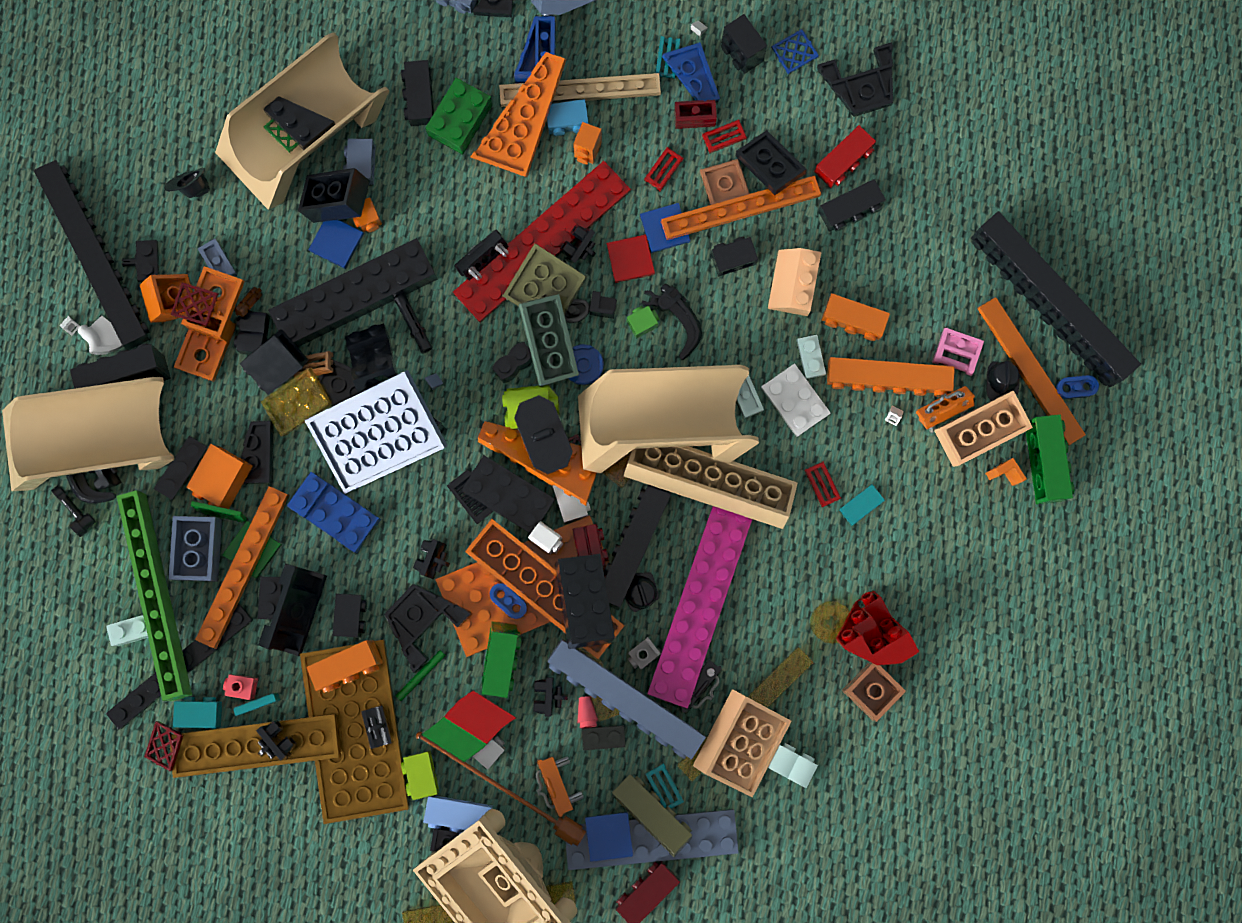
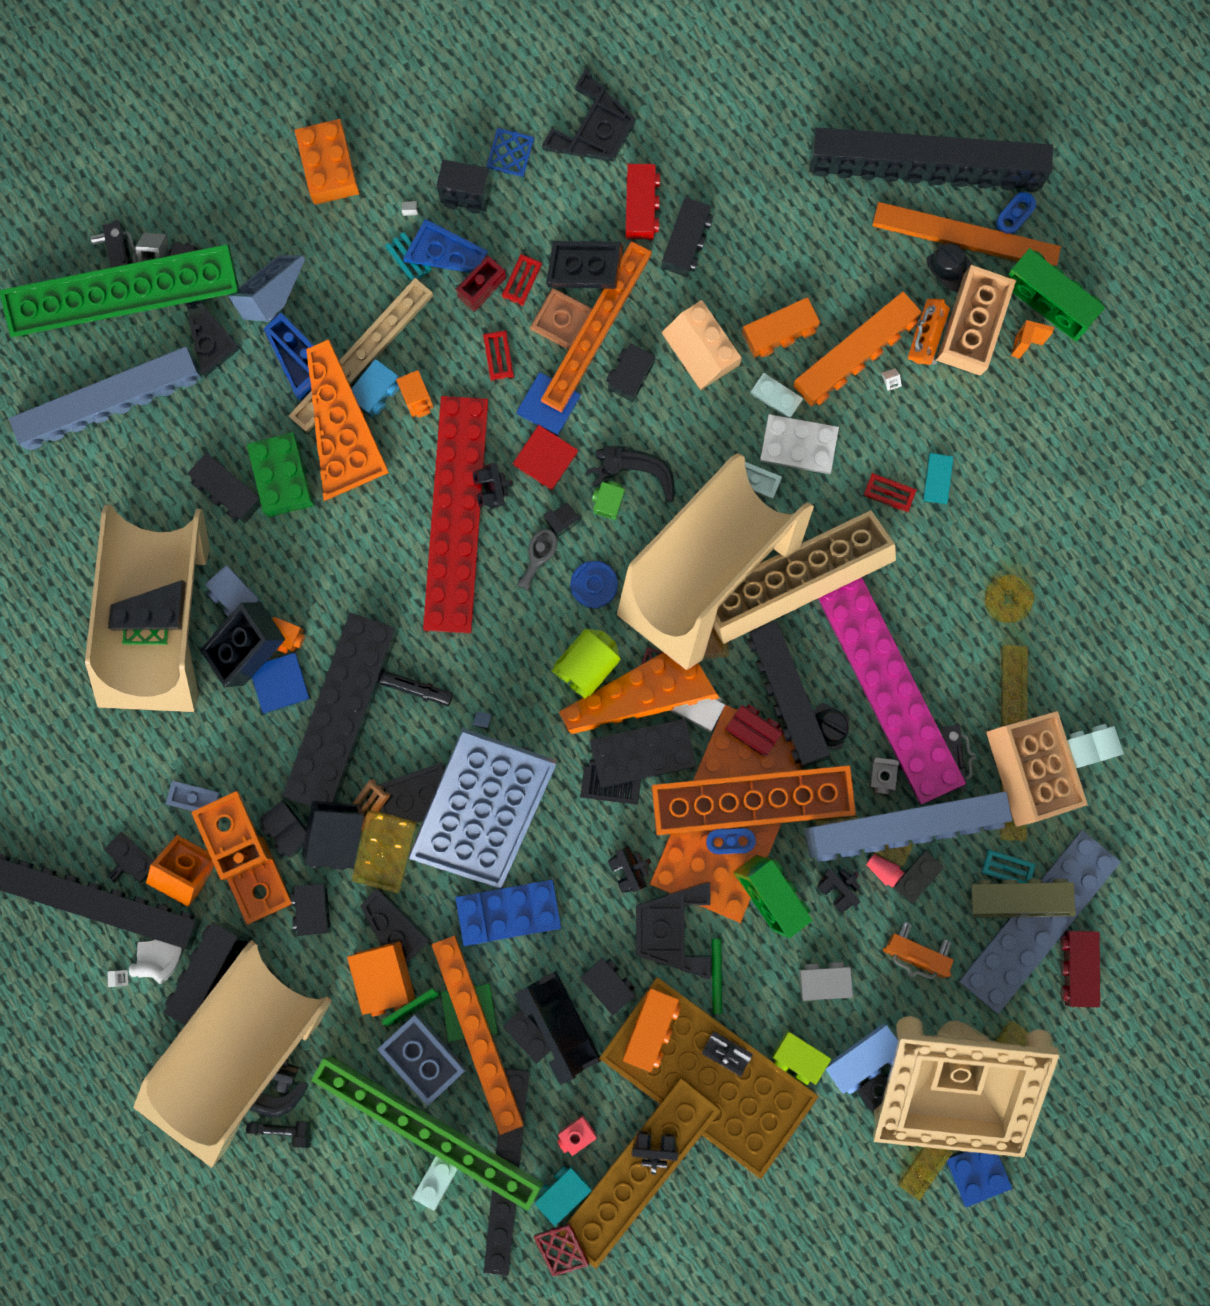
camera: 40 degrees left, 0 degrees up
(180, 467) = (342, 1010): black brick -> none
(189, 183) = (101, 755): black piece -> none
(210, 309) = (234, 842): dark red window -> none
(220, 395) = (311, 909): none -> black brick
(248, 301) = (256, 806): reddish brown axle -> none
(256, 704) = (604, 1136): teal tile -> none
(370, 355) = (411, 749): black piece -> none
(467, 731) = (804, 981): flag -> none
(482, 255) = (417, 574): black piece -> none
(508, 366) = (536, 631): black brick -> none
(543, 434) = (625, 673): black shield -> none
(544, 276) = (499, 549): olive plate -> none
(546, 538) = (713, 757): white brick -> none
(548, 339) = (548, 589): sand green brick -> none
(584, 601) = (799, 777): black brick -> none
(609, 836) = (1005, 952): blue tile -> none
(873, 691) = (1099, 621): nougat brick -> none
(875, 633) = (1056, 572): red brick -> none
(960, 345) = (888, 269): bright pink plate -> none

